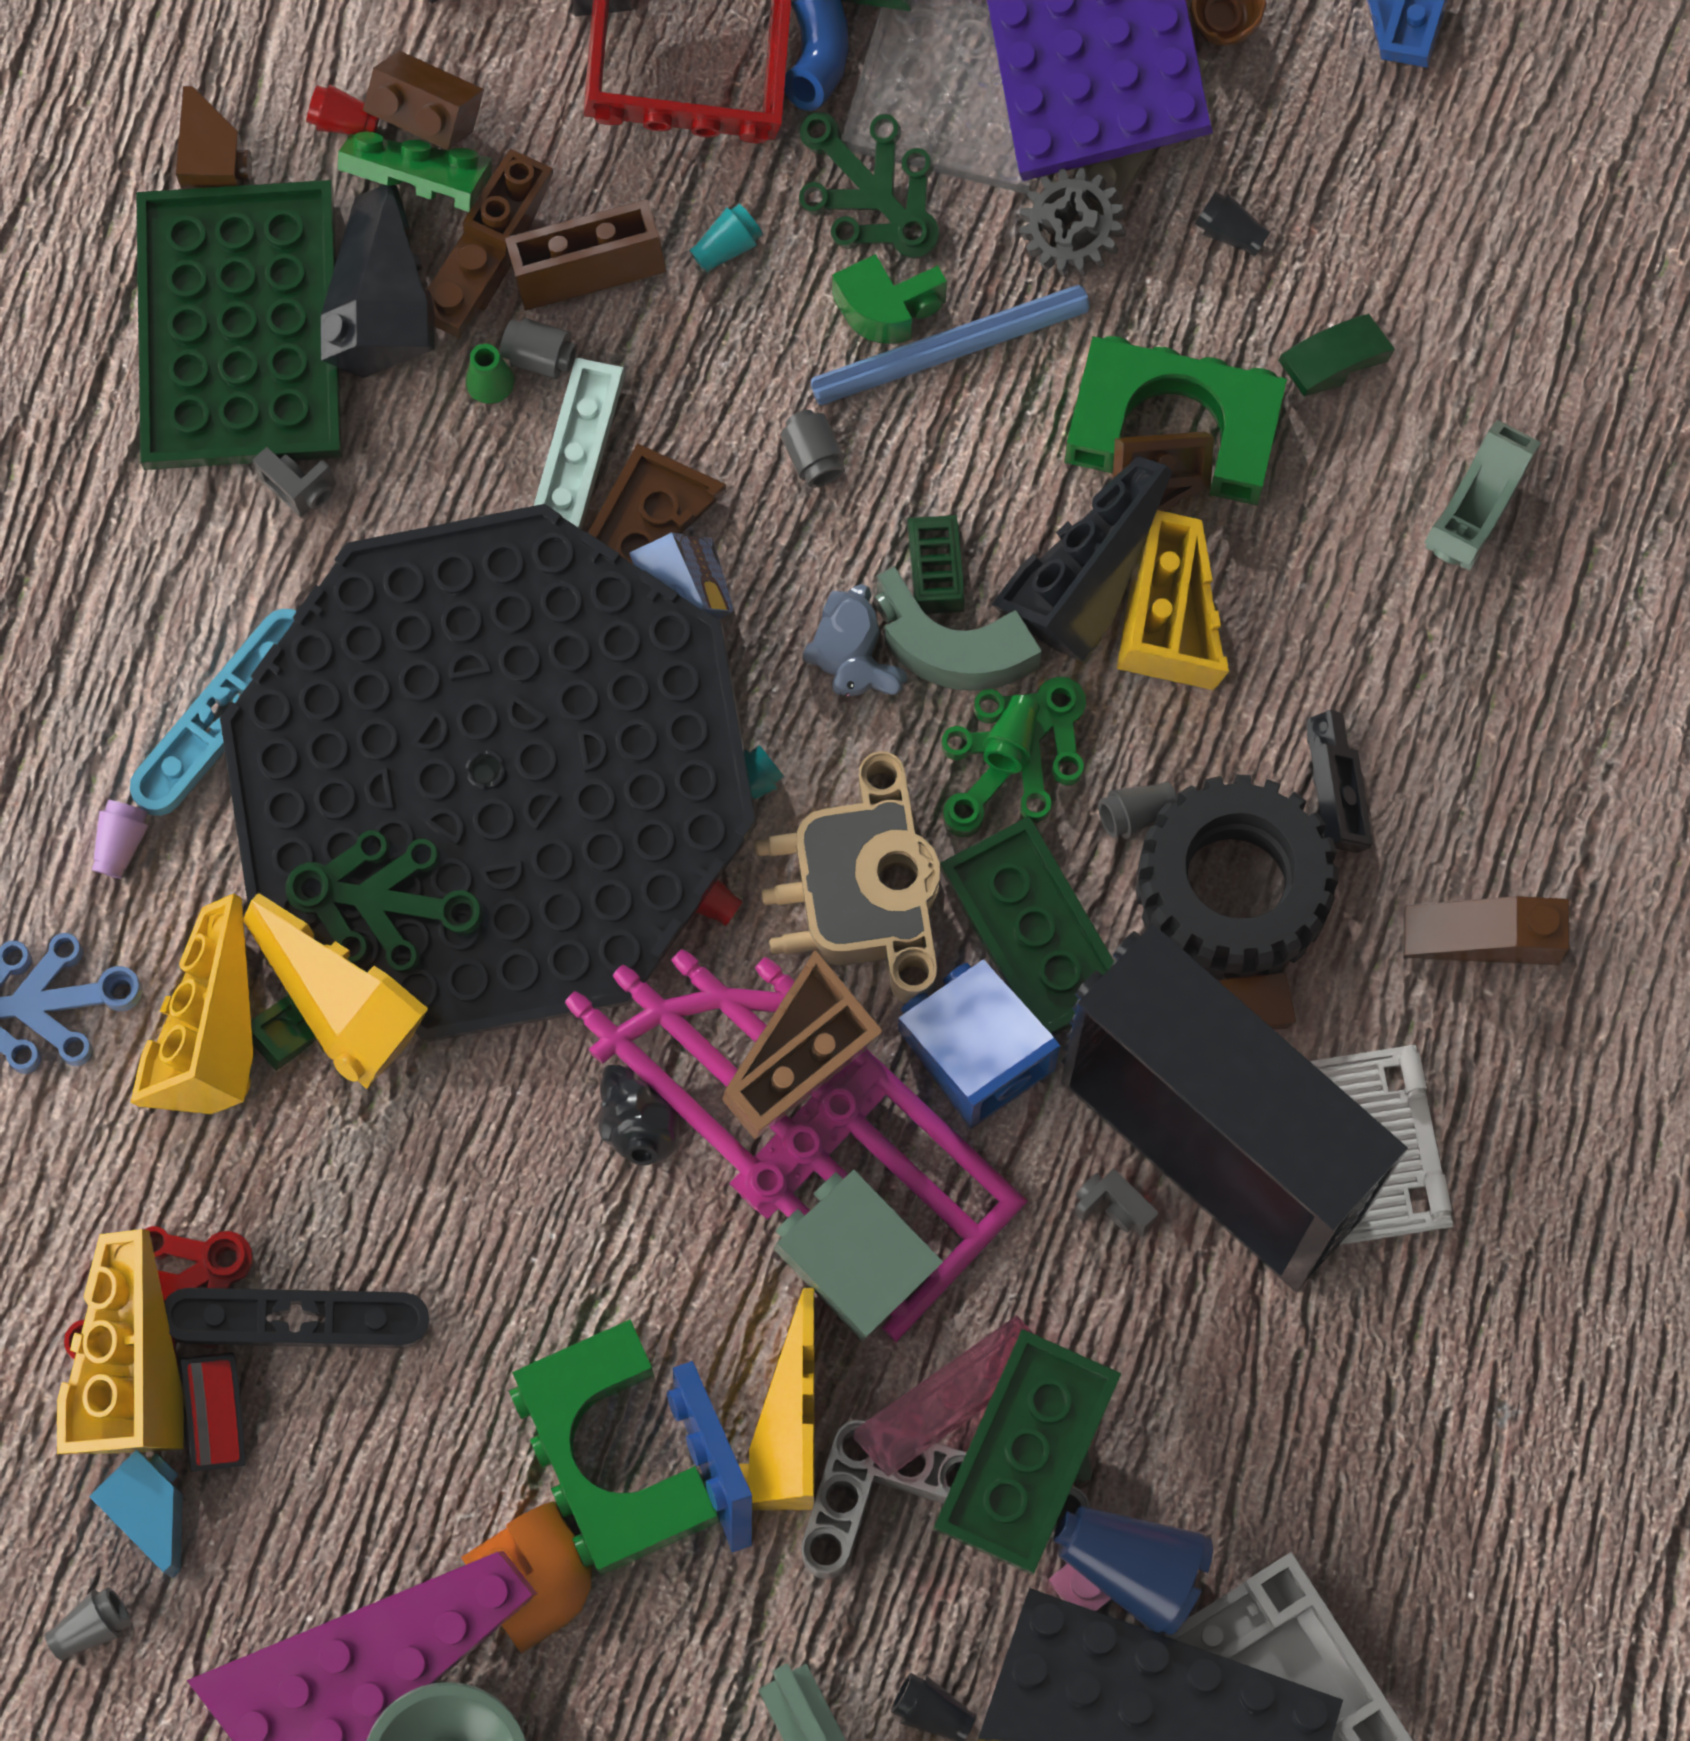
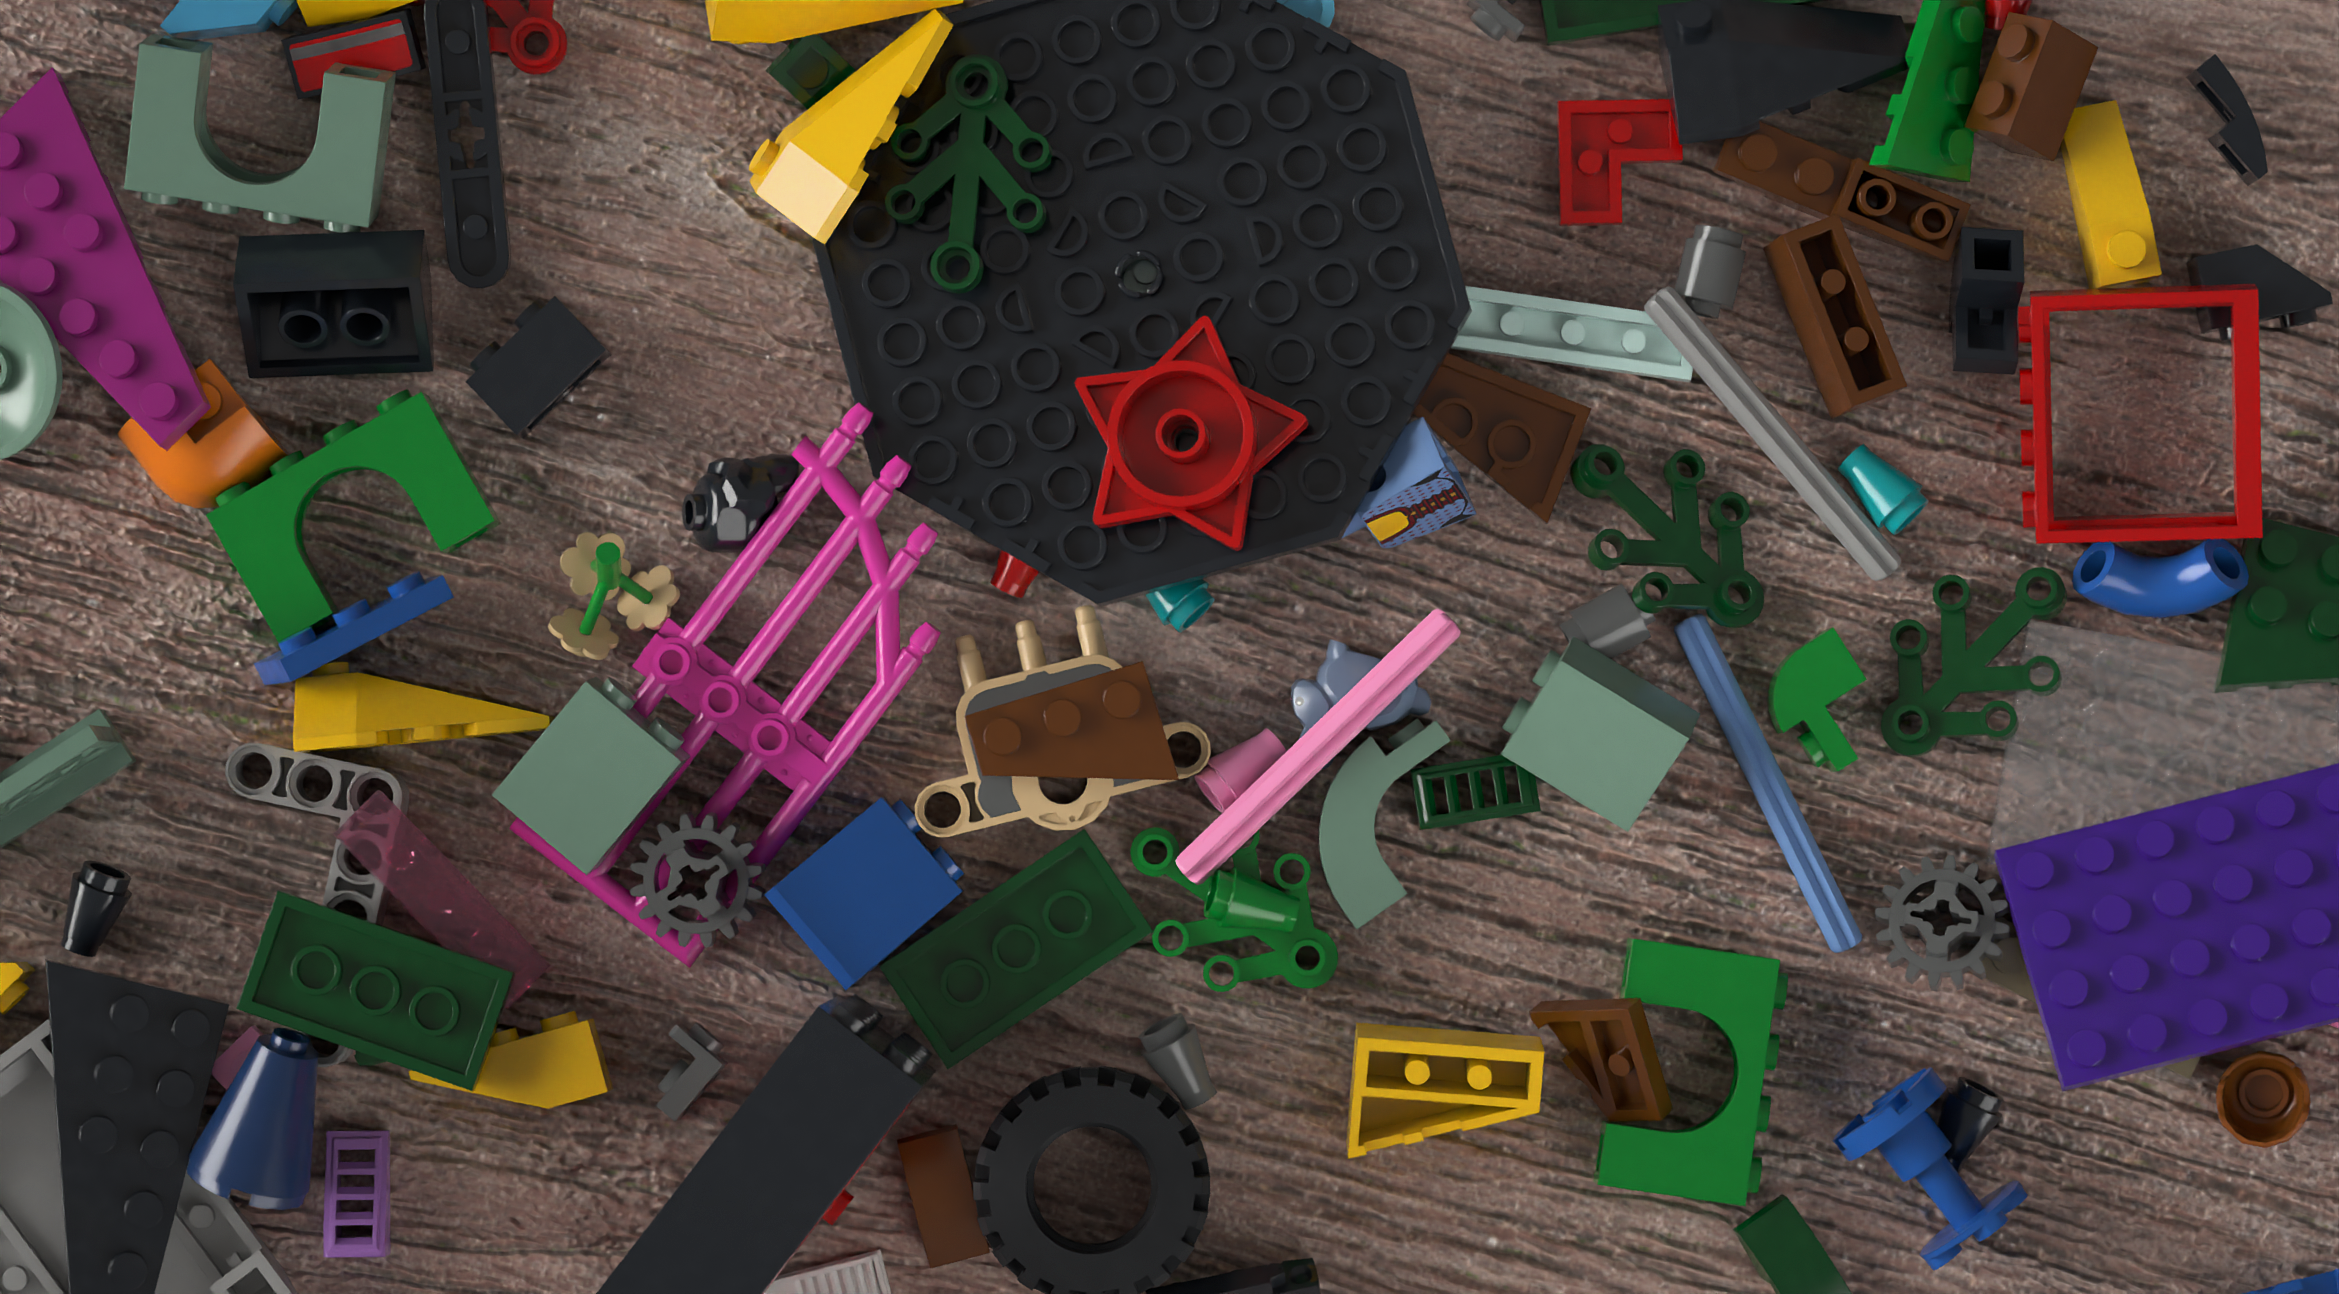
camera: 80 degrees right, 15 degrees up
(320, 1436) = (177, 157): none -> sand green arch
(425, 424) = (1595, 142): none -> red plate
(426, 1446) = (335, 303): none -> black slope
(488, 375) = (1654, 226): green cone -> none
(502, 1278) = (536, 365): none -> black brick
(524, 56) = (2108, 199): none -> yellow slope
(585, 150) = (1985, 300): none -> black brick
(616, 696) = (1148, 409): none -> red plate
(672, 311) = (1772, 433): none -> light grey axle
(682, 1240) = (600, 569): none -> tan plant
(793, 358) = (1676, 540): none -> dark green plant
(801, 1048) = (816, 685): medium nougat wedge -> none
(858, 851) = (1077, 730): none -> reddish brown wing
(890, 666) = (1318, 746): none -> bright pink axle
(899, 455) = (1598, 732): none -> sand green brick
(904, 738) = (1237, 768): none -> bright pink cone
(965, 1196) = (680, 855): none -> dark grey gear
(1079, 583) = (1463, 970): black wedge -> none
(1103, 1323) = (544, 1068): none -> yellow slope
(1202, 1480) = (333, 1243): none -> medium lavender slope
(1232, 260) = (1916, 1149): none -> blue piece

